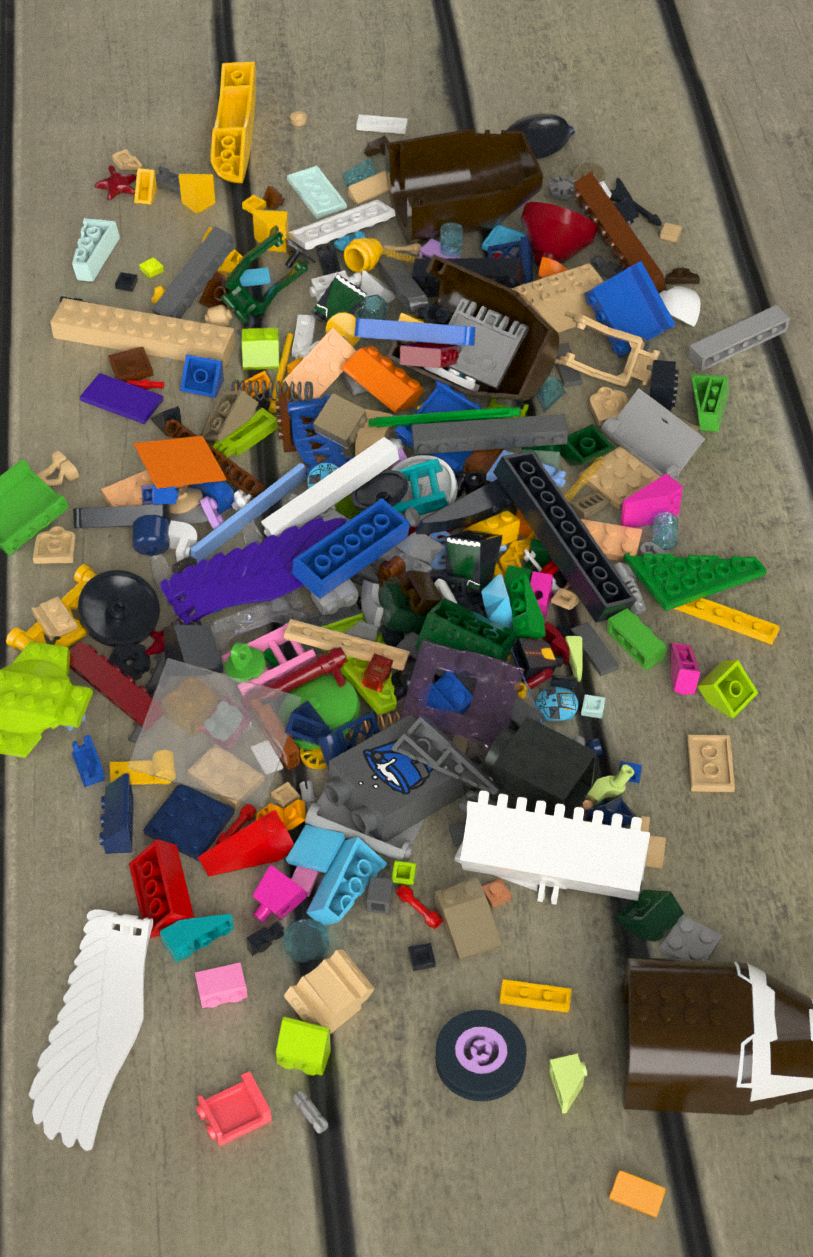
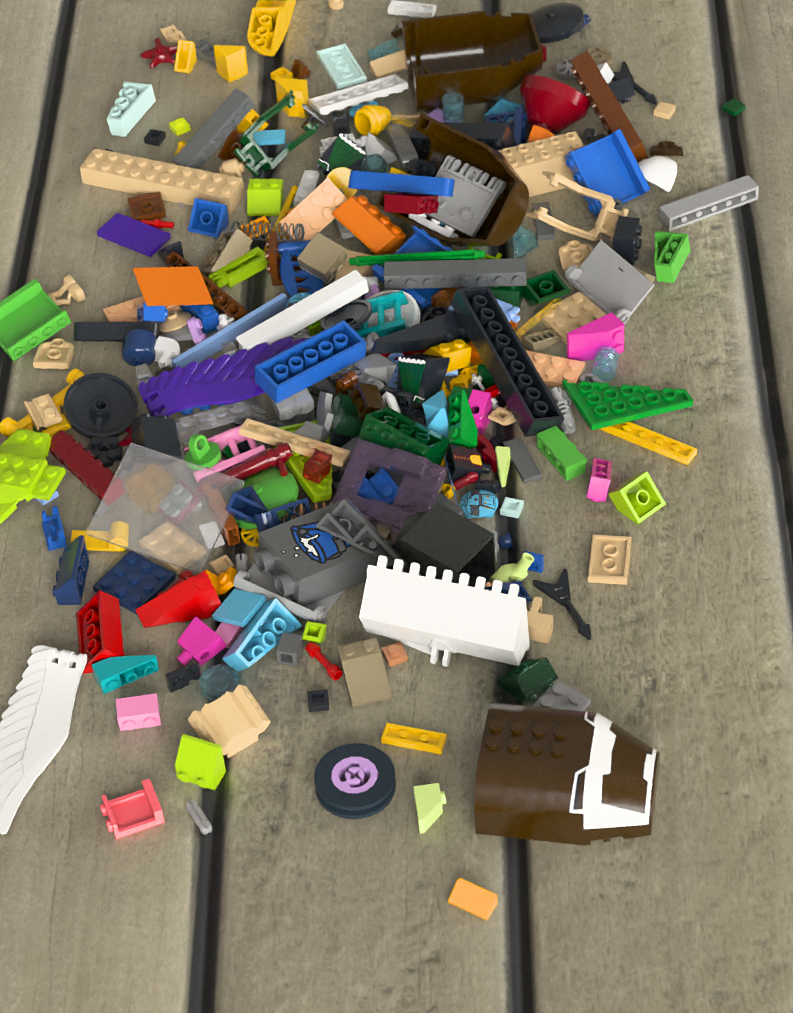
camera: 10 degrees right, 5 degrees down
(665, 807) = (561, 594): none -> black piece
(743, 226) = (733, 107): none -> dark green tile

